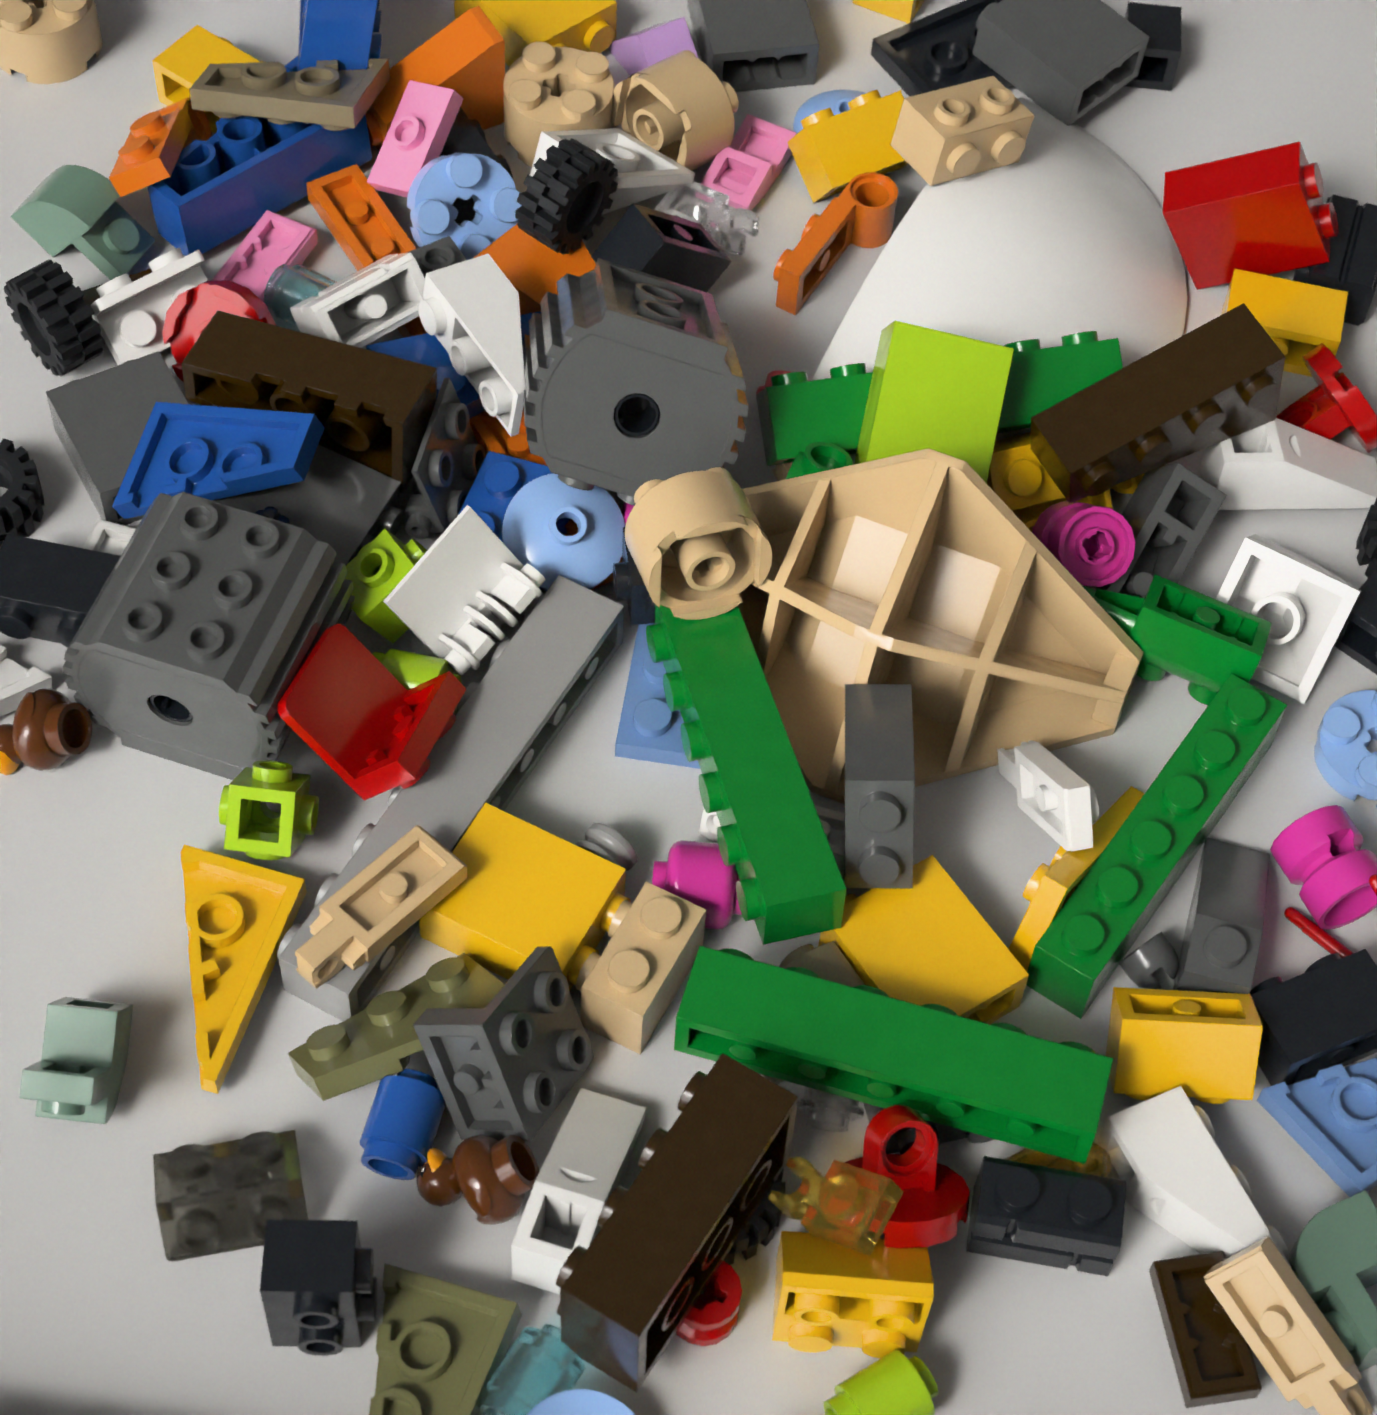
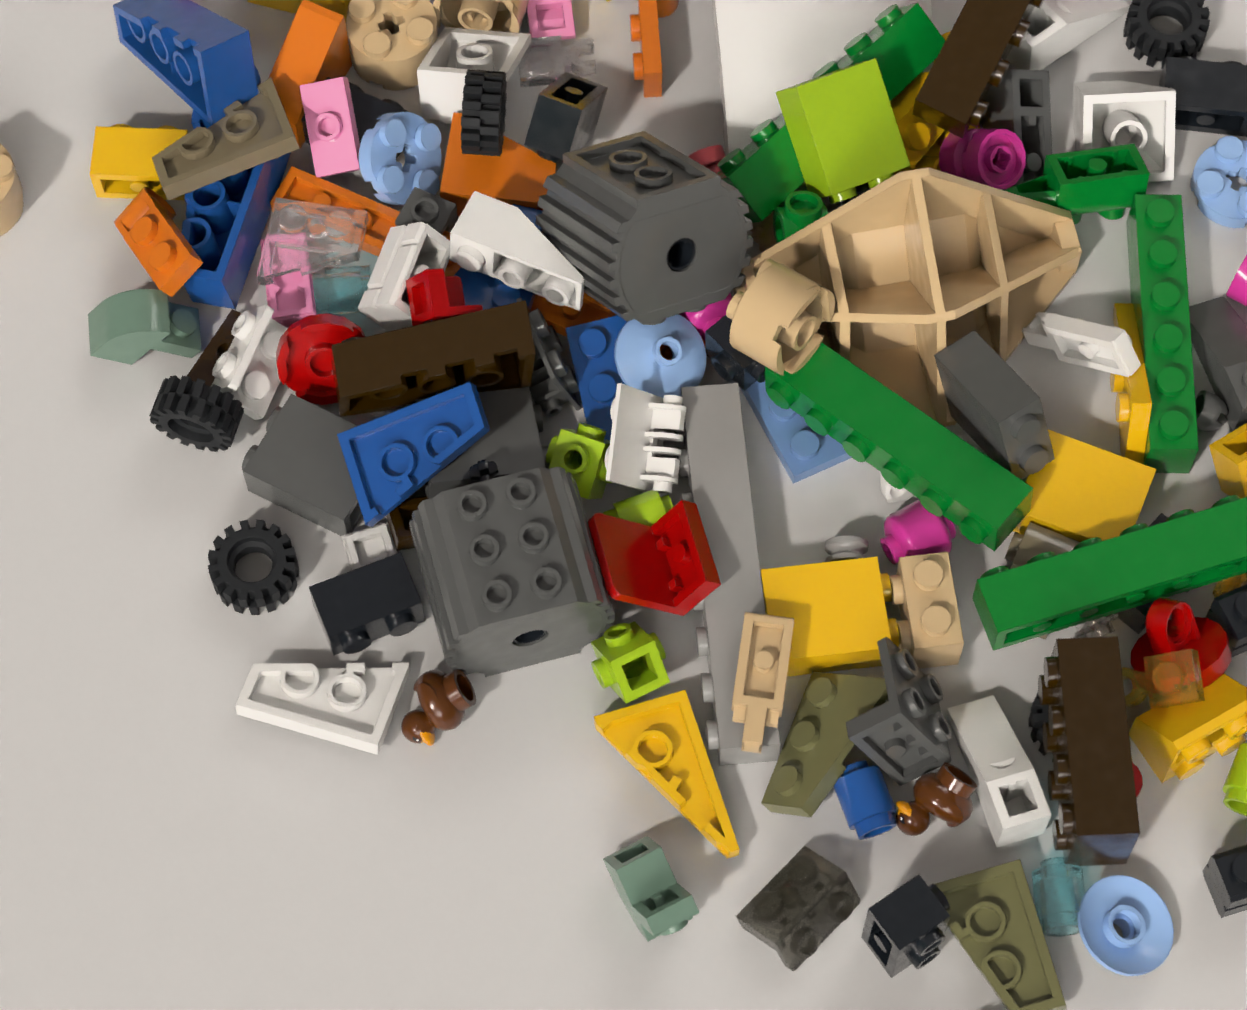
camera: 30 degrees left, 10 degrees up
(310, 229) = (309, 238): none -> clear wing
(367, 327) = (436, 297): none -> red panel

